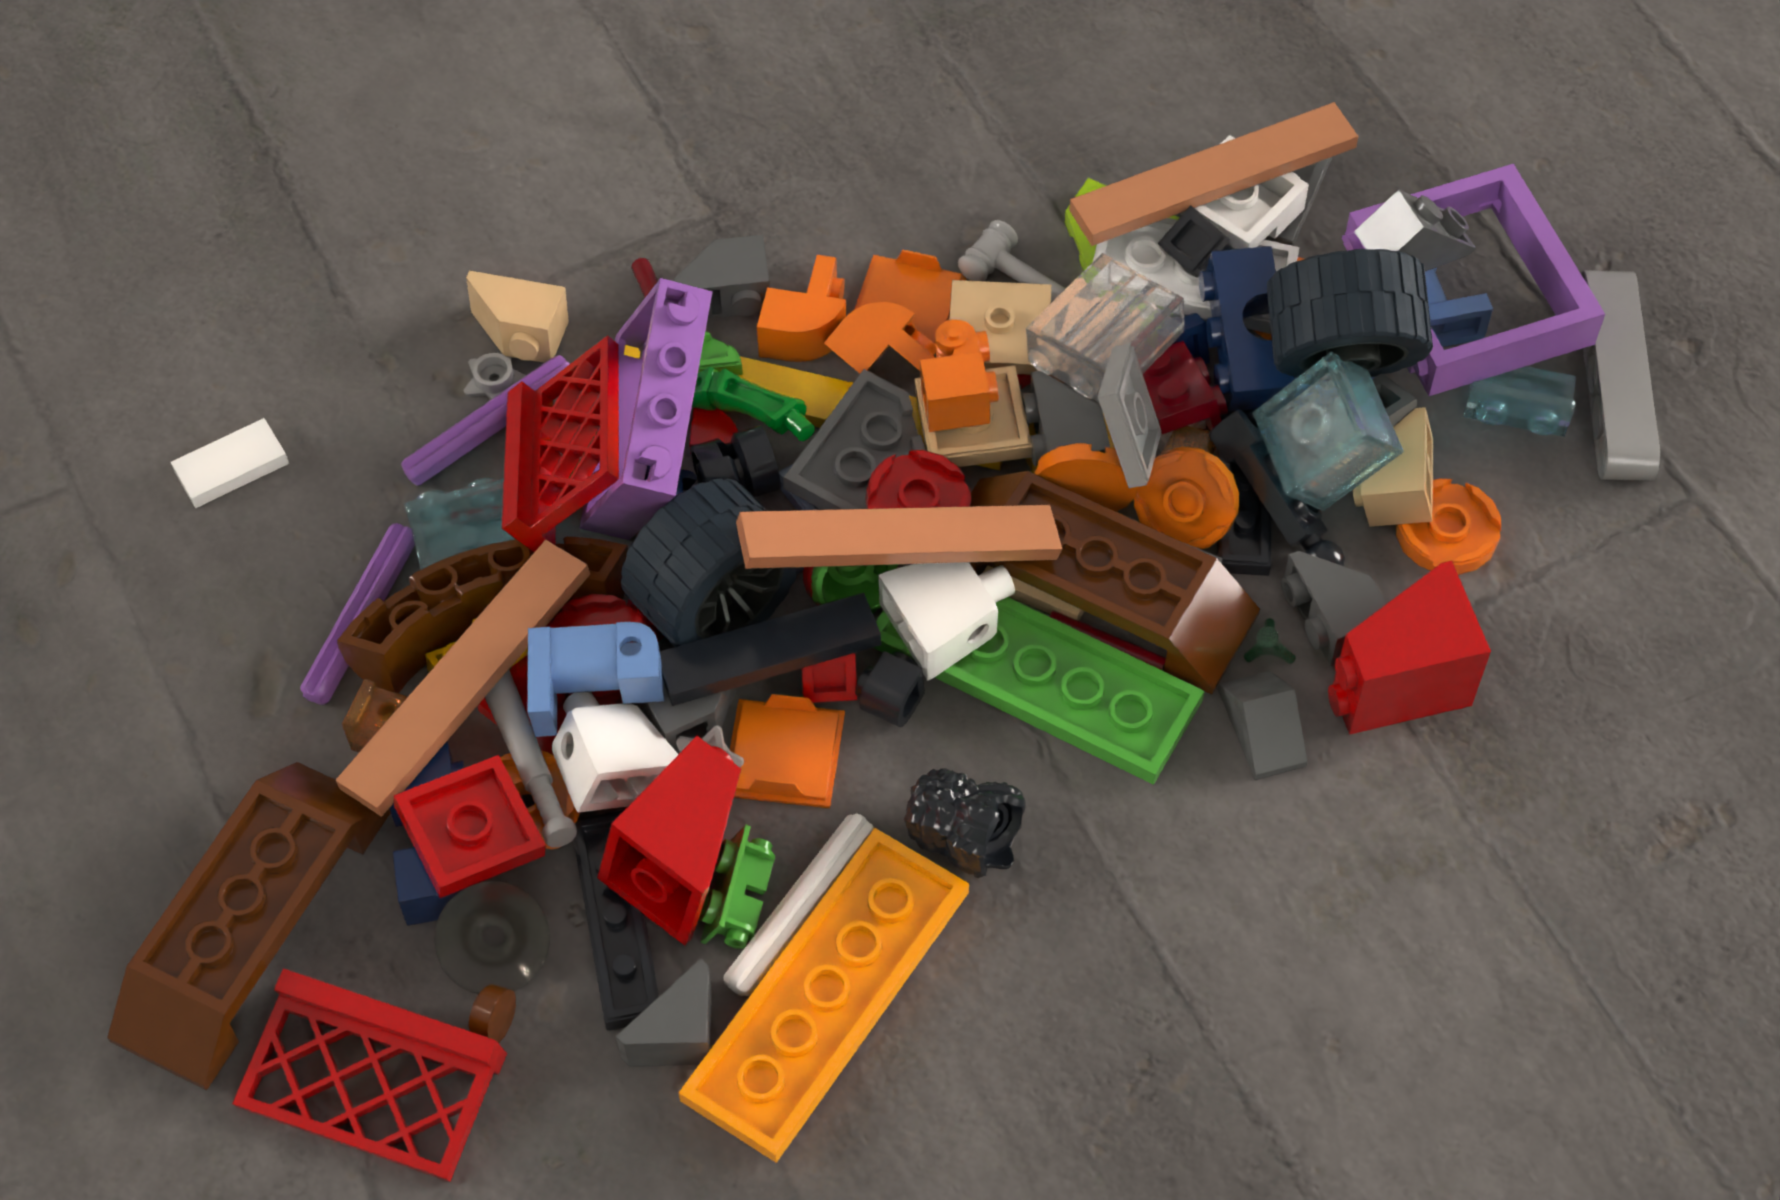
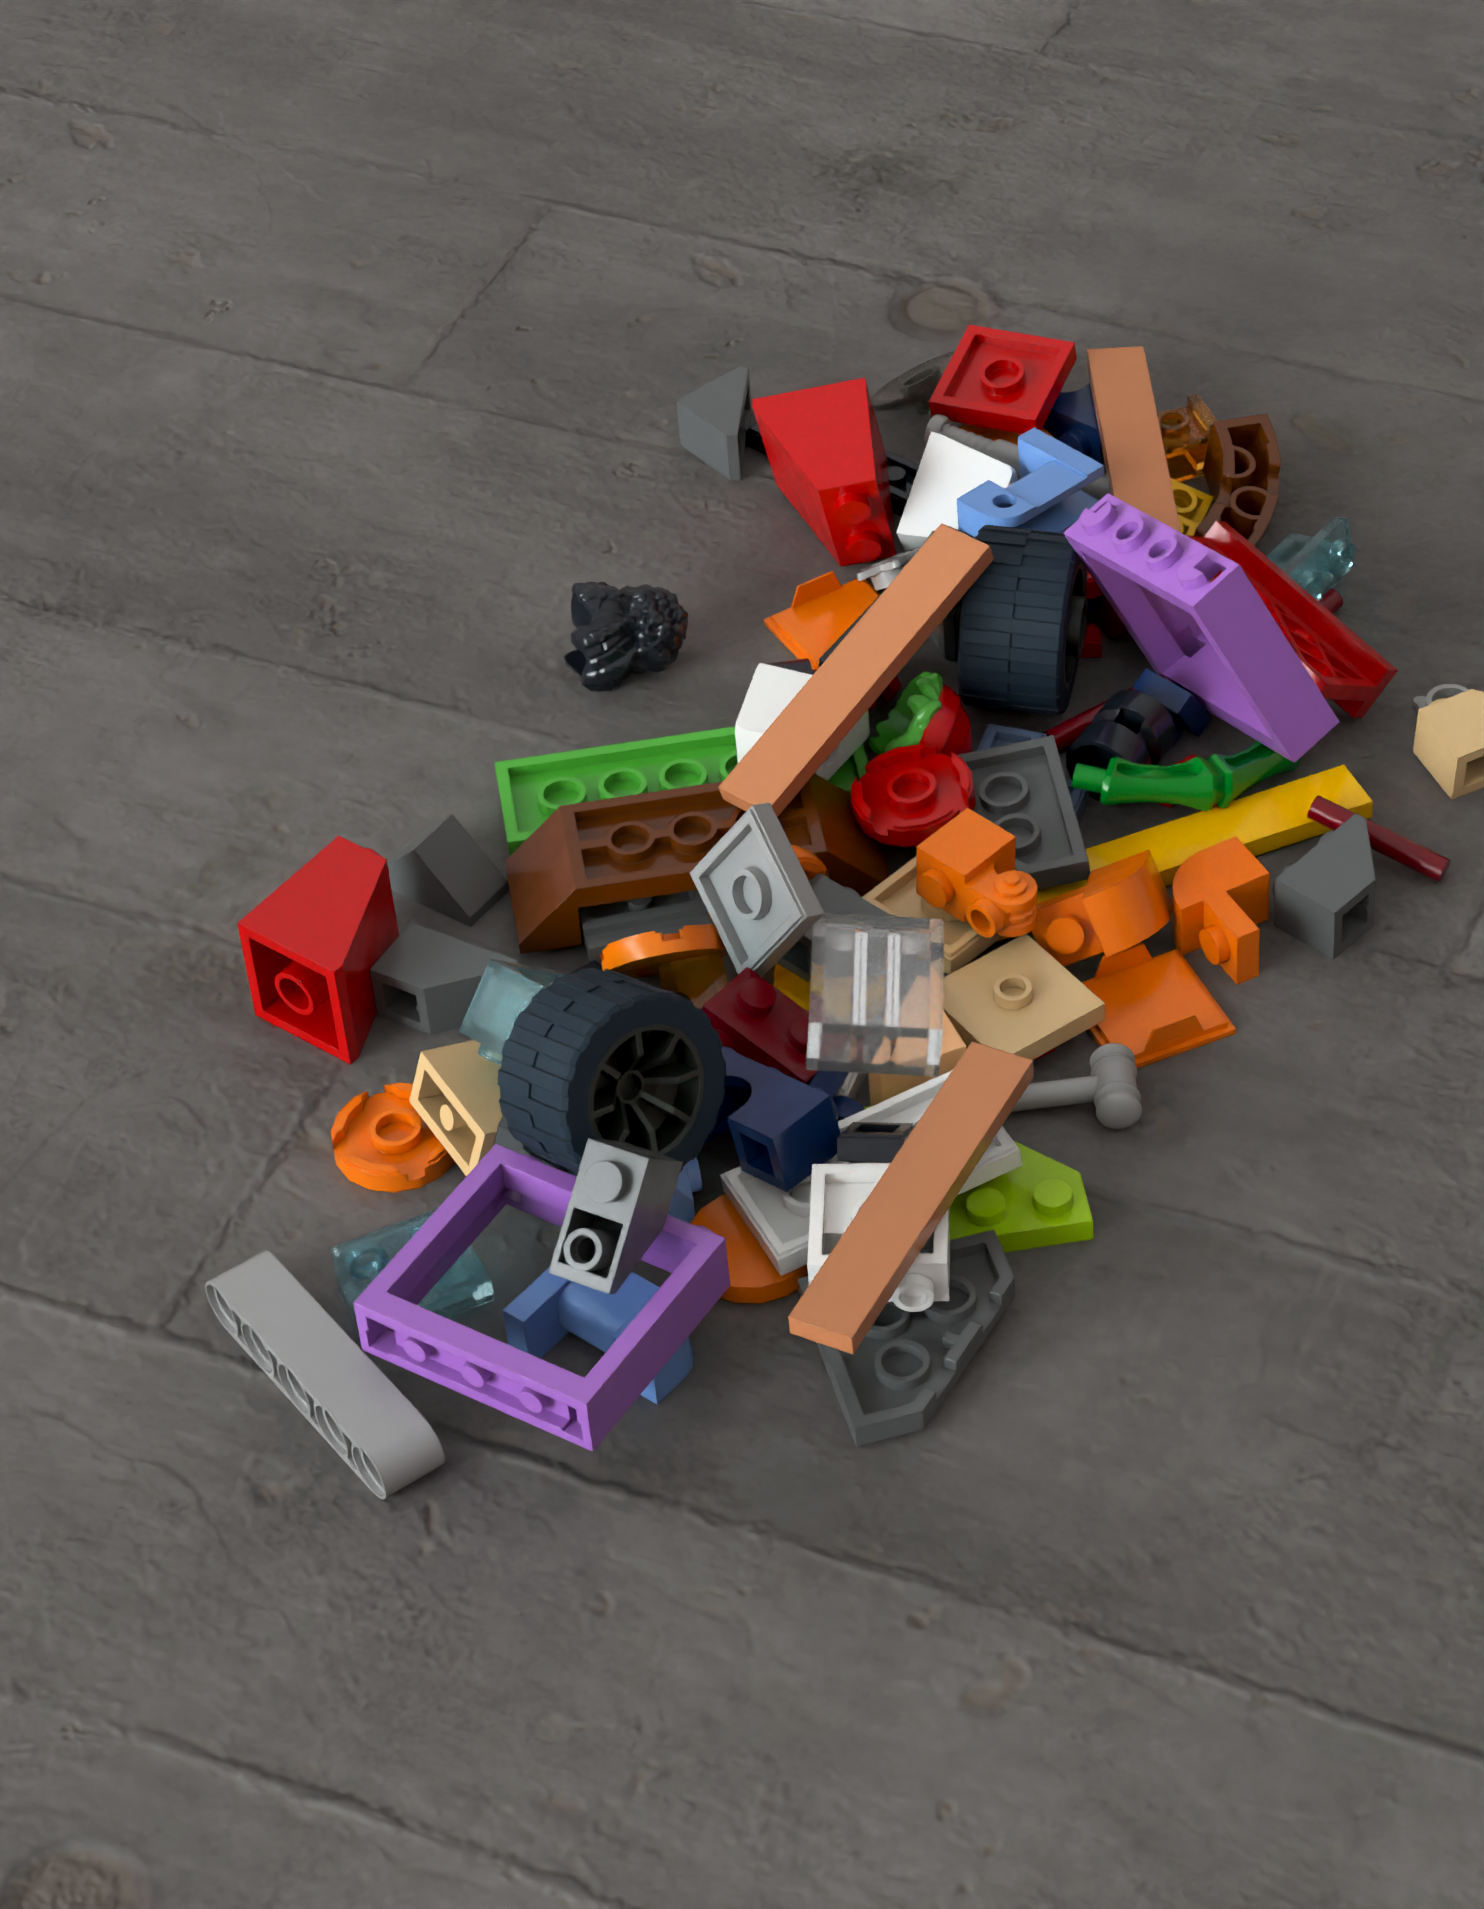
camera: 145 degrees right, 15 degrees down
(234, 919) = (1128, 287): reddish brown slope -> none
(374, 583) = (1309, 492): medium lavender axle -> none
(385, 1025) = (938, 307): red fence -> none
(472, 429) = (1403, 654): medium lavender axle -> none
(493, 1012) = (868, 355): reddish brown tile -> none
(719, 356) = (1261, 817): bright green tile -> none
(726, 907) = (772, 527): bright green hinge -> none
(797, 906) = (712, 544): white axle -> none
(824, 994) = (631, 493): light orange plate -> none
(1269, 644) = (482, 915): clear green bar -> none

